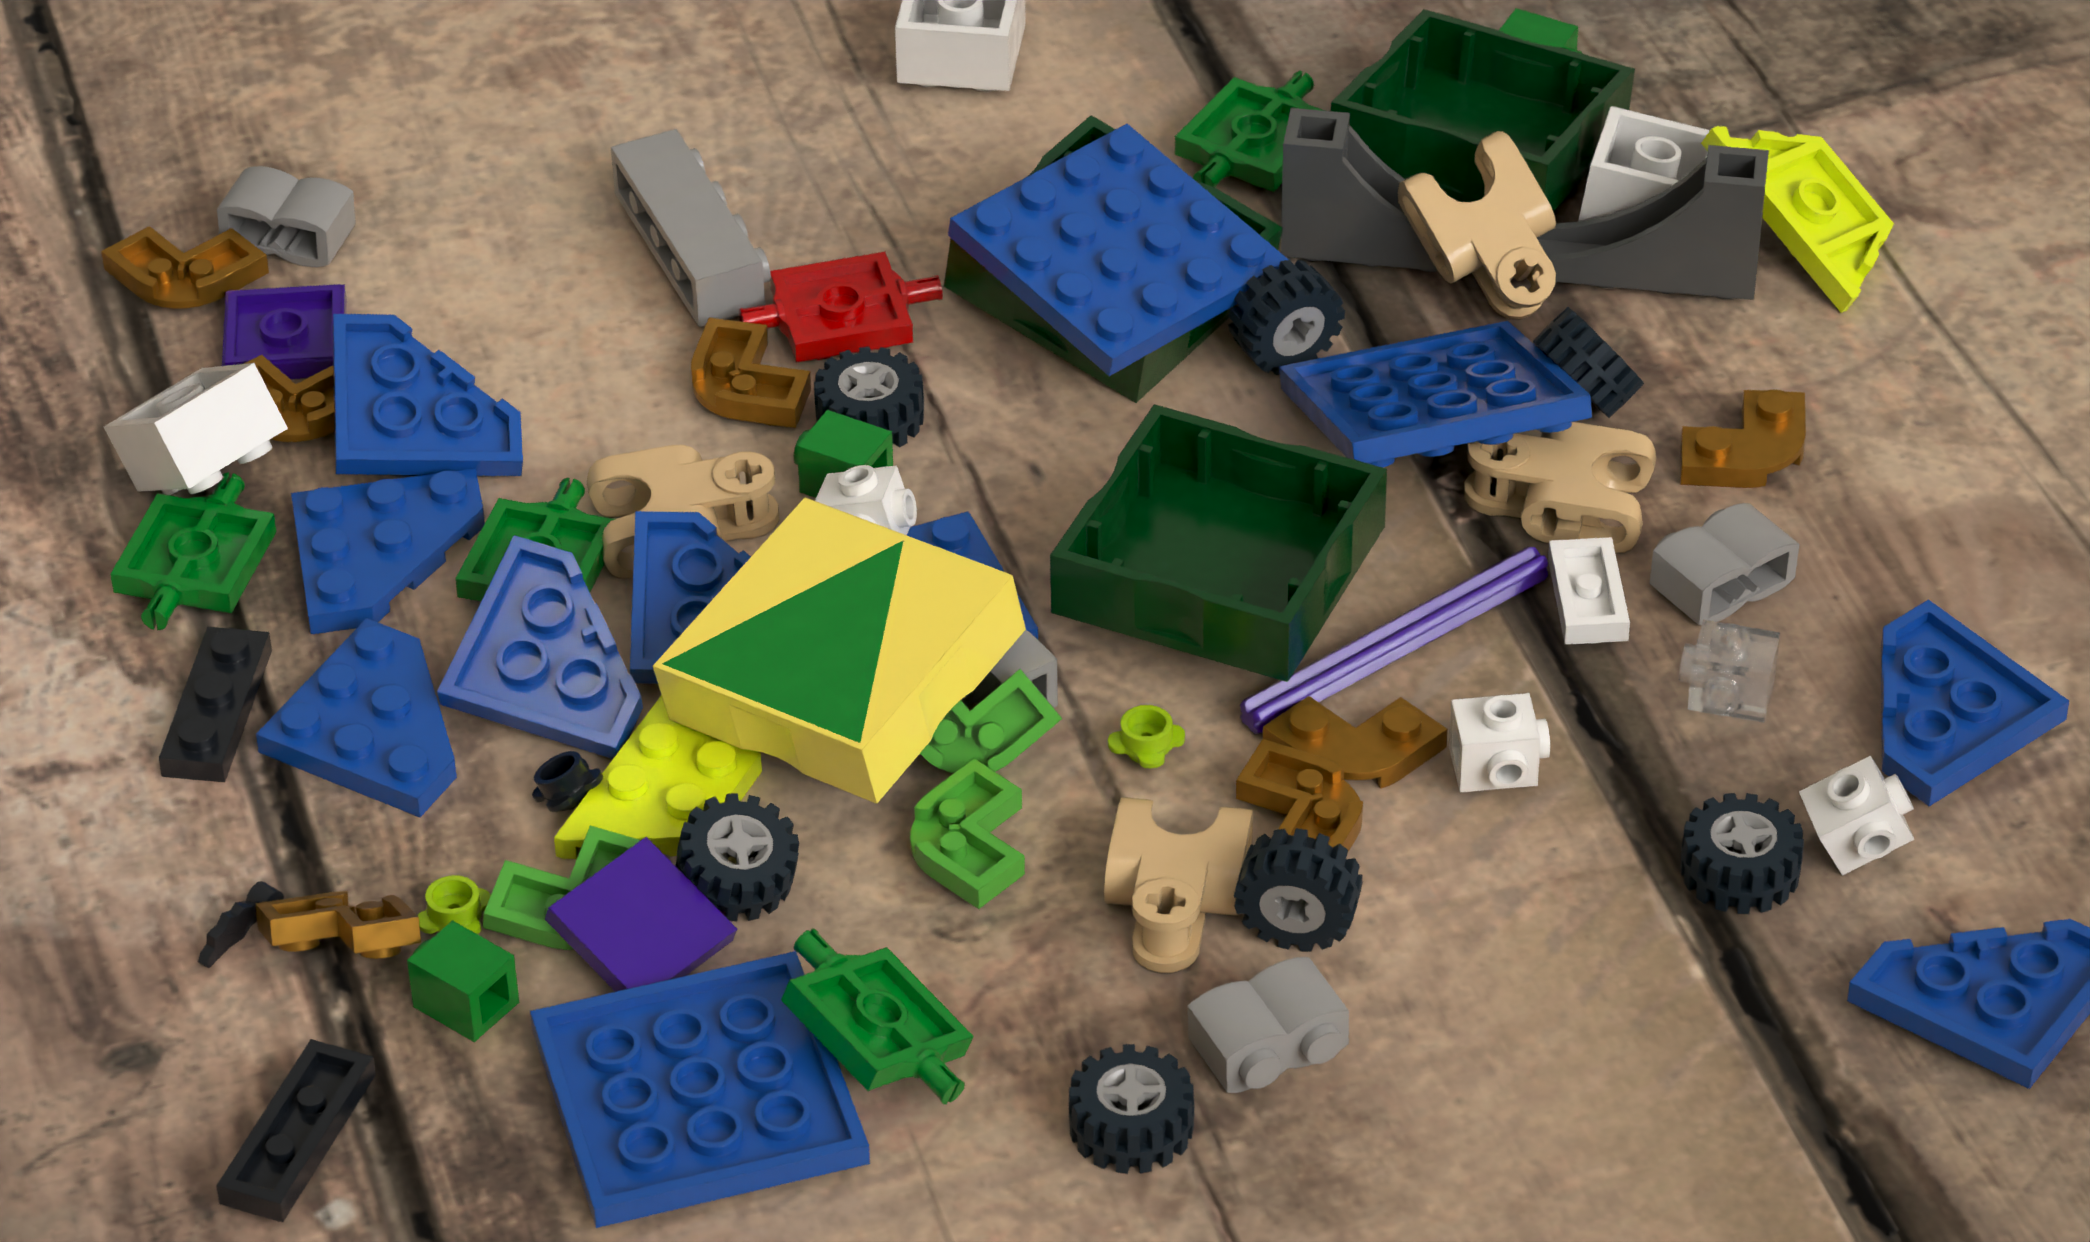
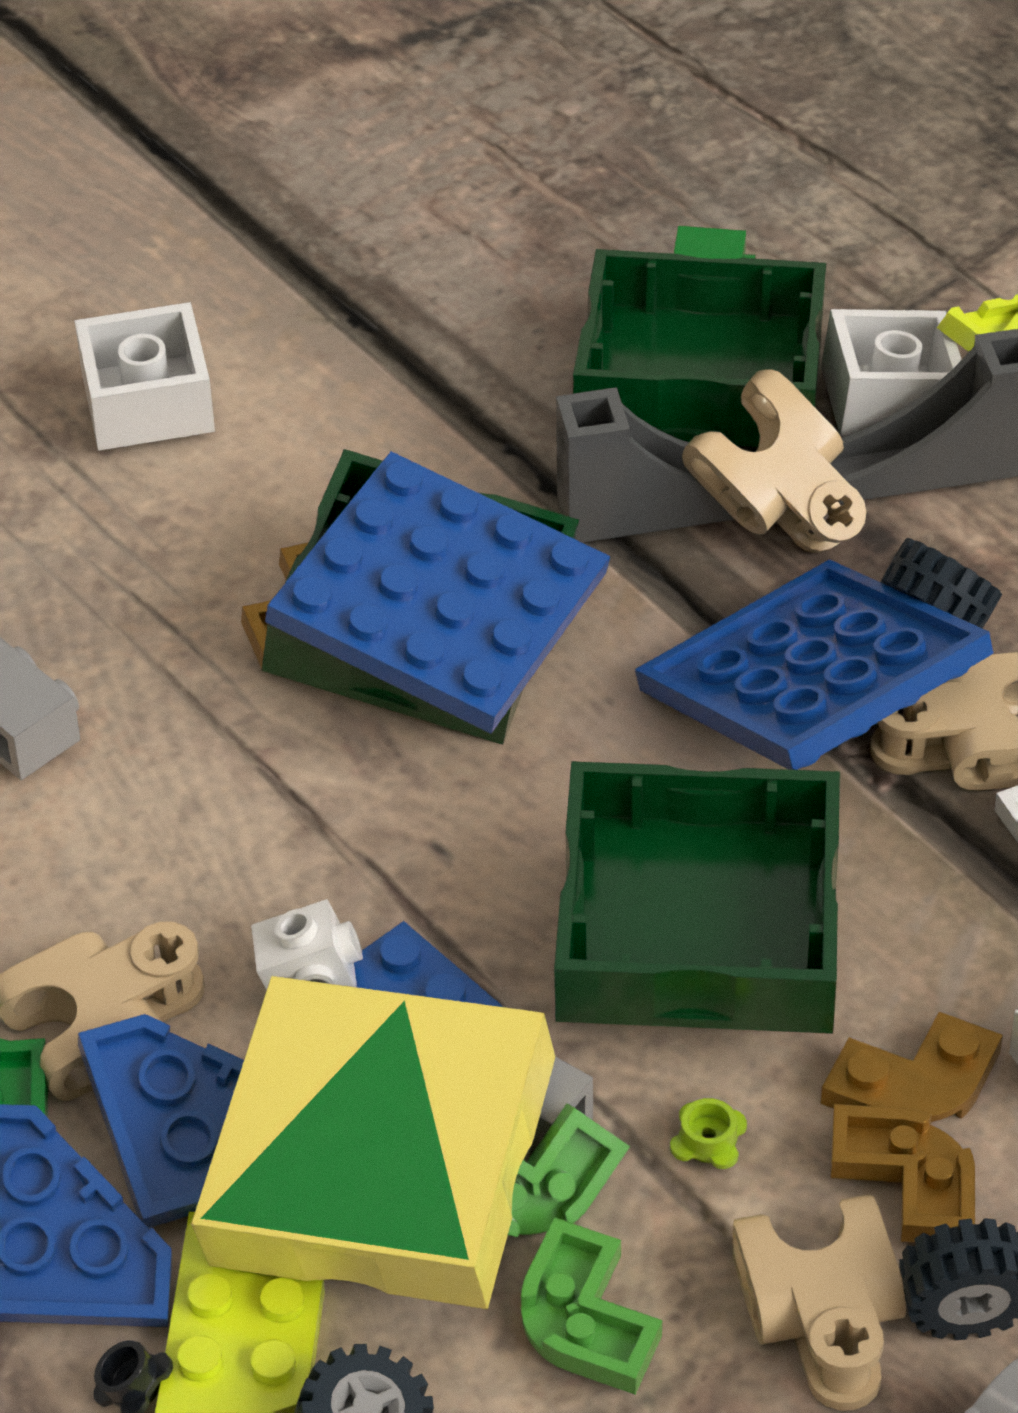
camera: 20 degrees left, 5 degrees up
(736, 385) = (97, 842): pearl gold plate -> none
(838, 445) = (246, 891): green brick -> none
(842, 305) = (162, 719): red plate -> none
(873, 390) = (241, 819): black wheel -> none
(1243, 132) = (482, 417): green plate -> none
(1286, 316) = (624, 615): black wheel -> none
(1397, 637) = (896, 945): axle -> none

